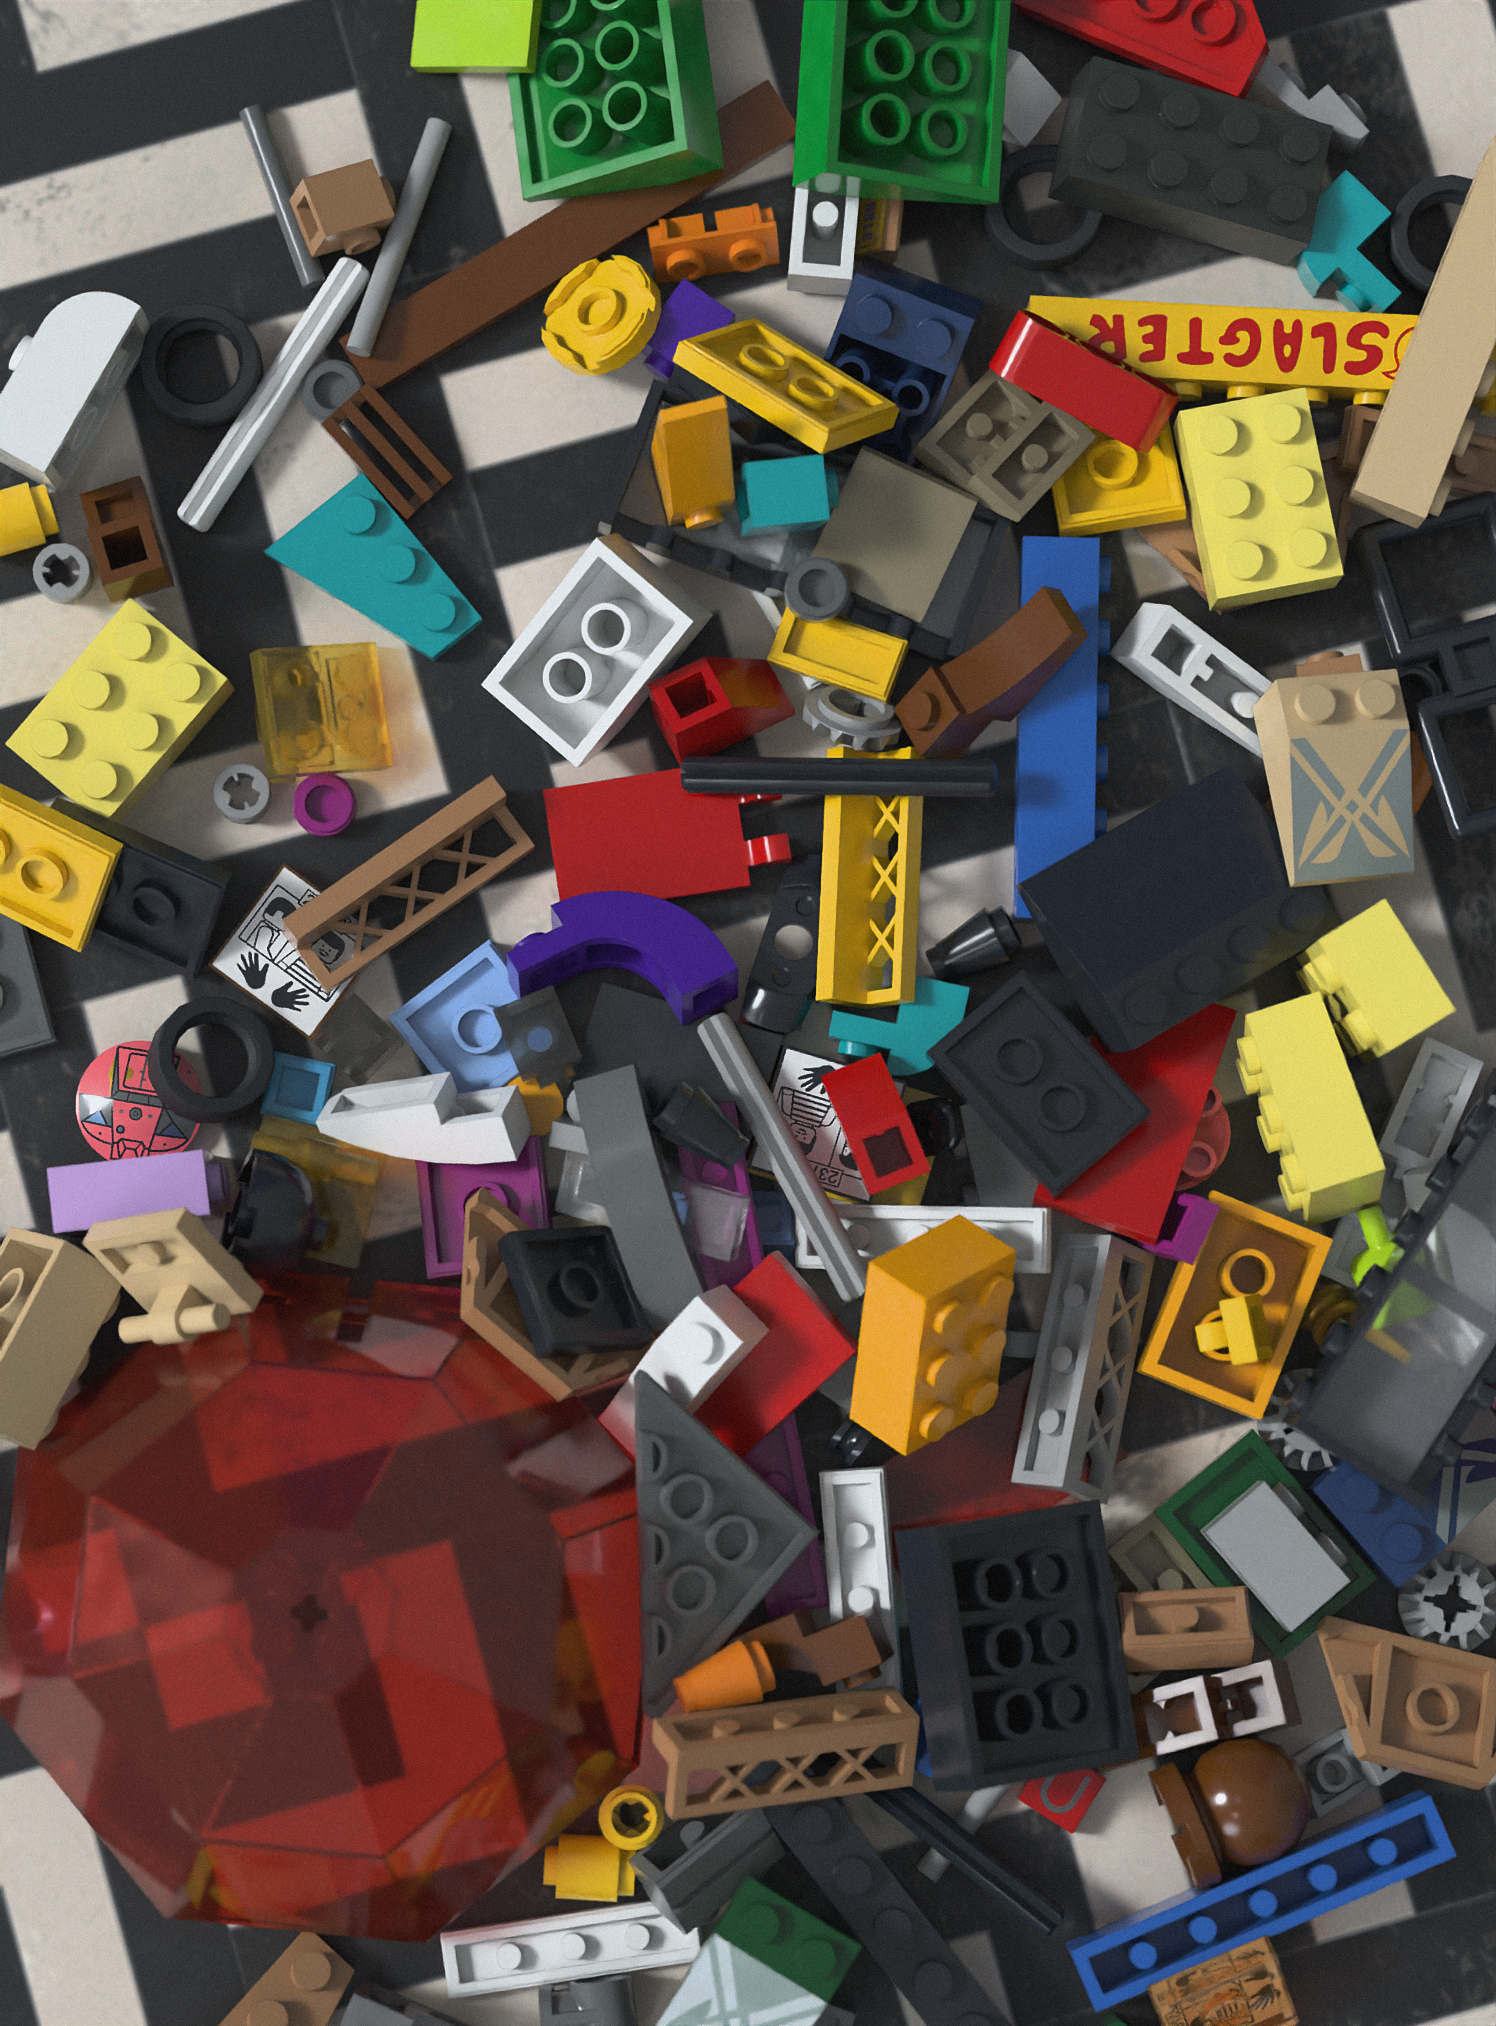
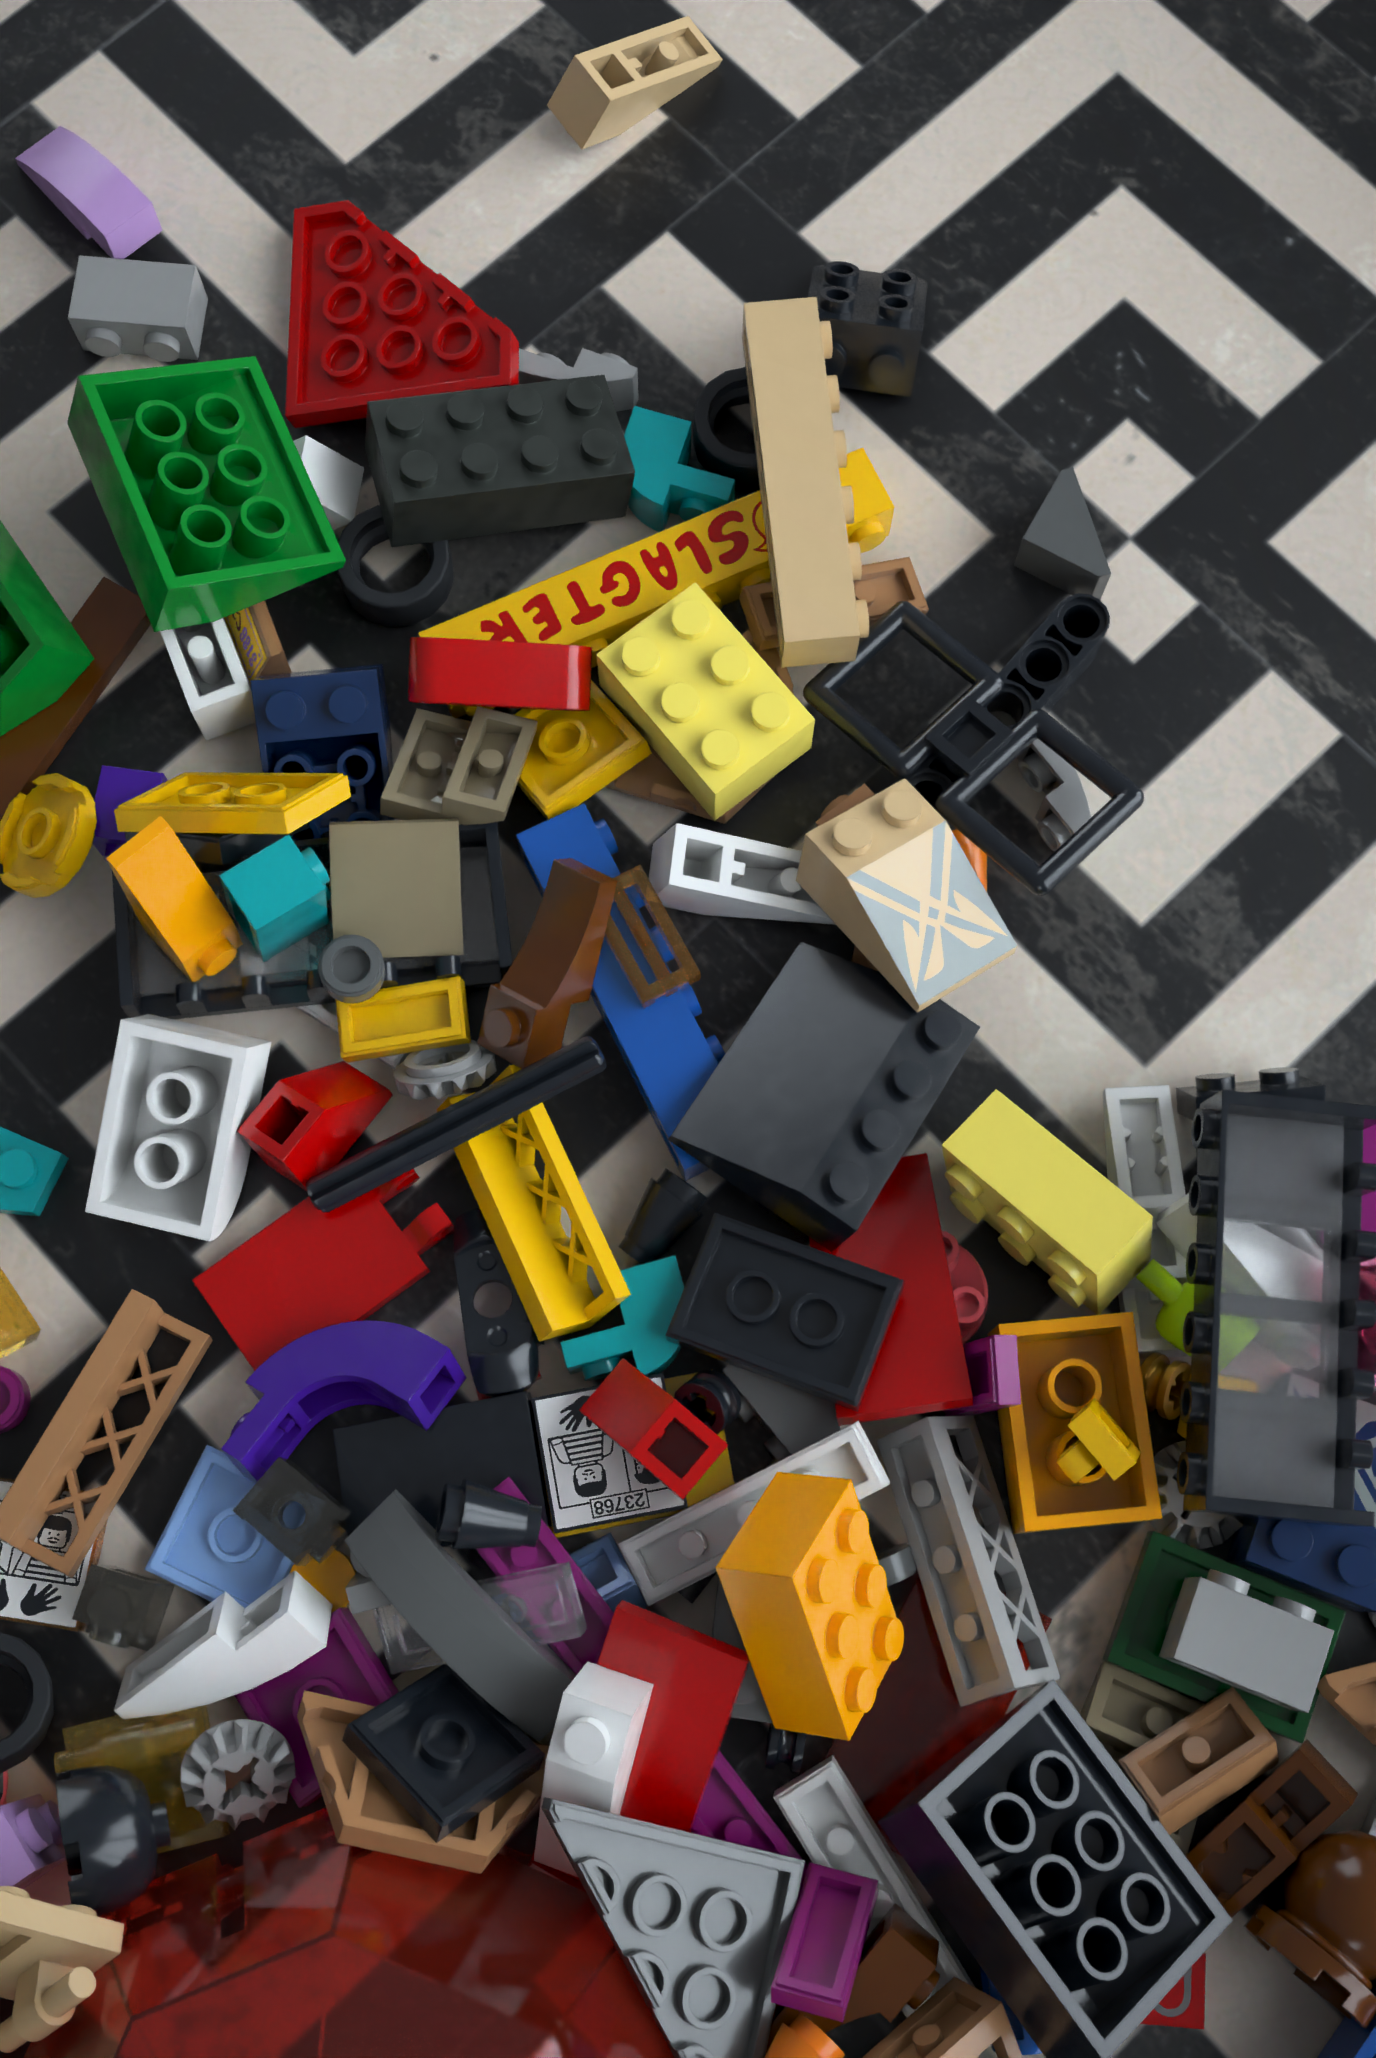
camera: 25 degrees left, 10 degrees down
(298, 1088) = (87, 1684): dark azure tile -> none
(401, 1200) = (230, 1748): none -> light grey gear
(743, 243) = (135, 728): orange hinge -> none
(785, 1156) = (585, 1505): light grey axle -> none
(804, 1598) = (825, 1942): none -> magenta tile
(1087, 744) = (666, 982): none -> clear orange tile
(1373, 983) = (1042, 1055): light yellow brick -> none

